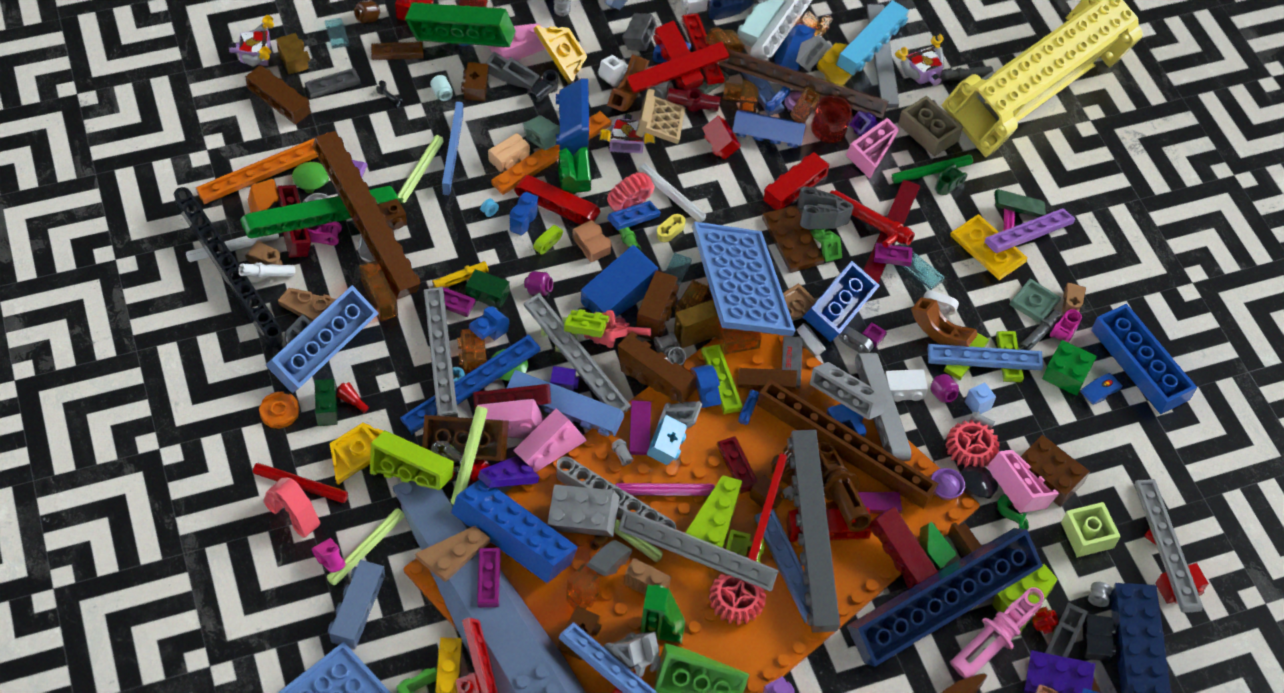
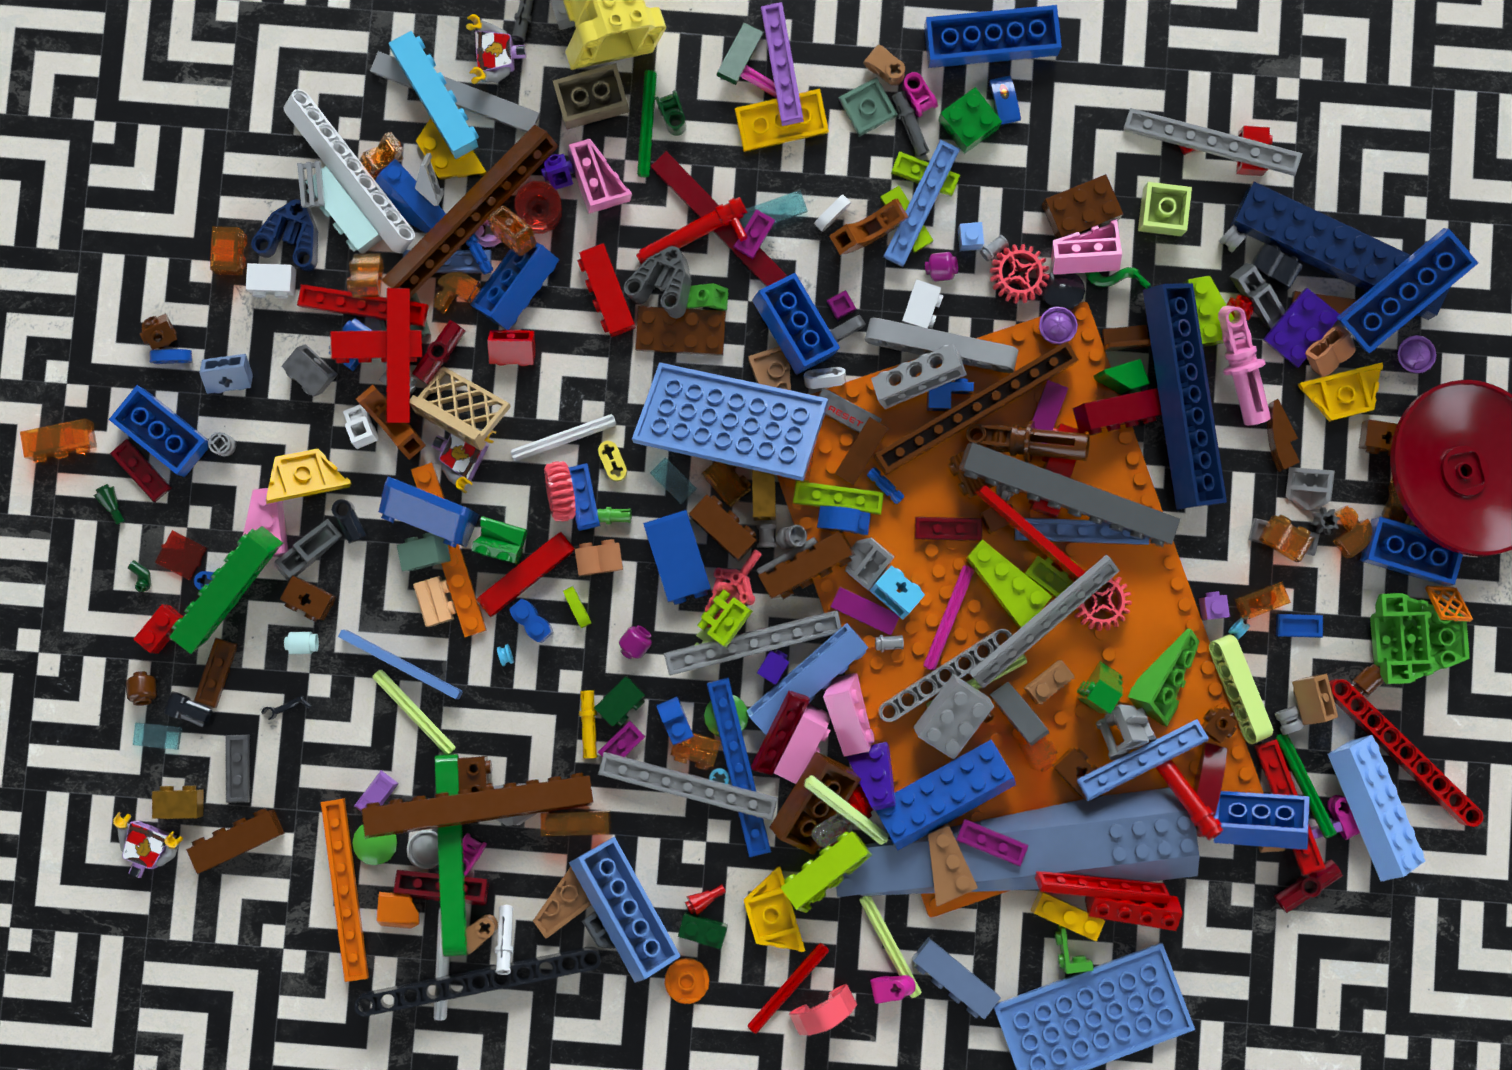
camera: 60 degrees left, 30 degrees up
(363, 41) = (183, 707): none -> black piece

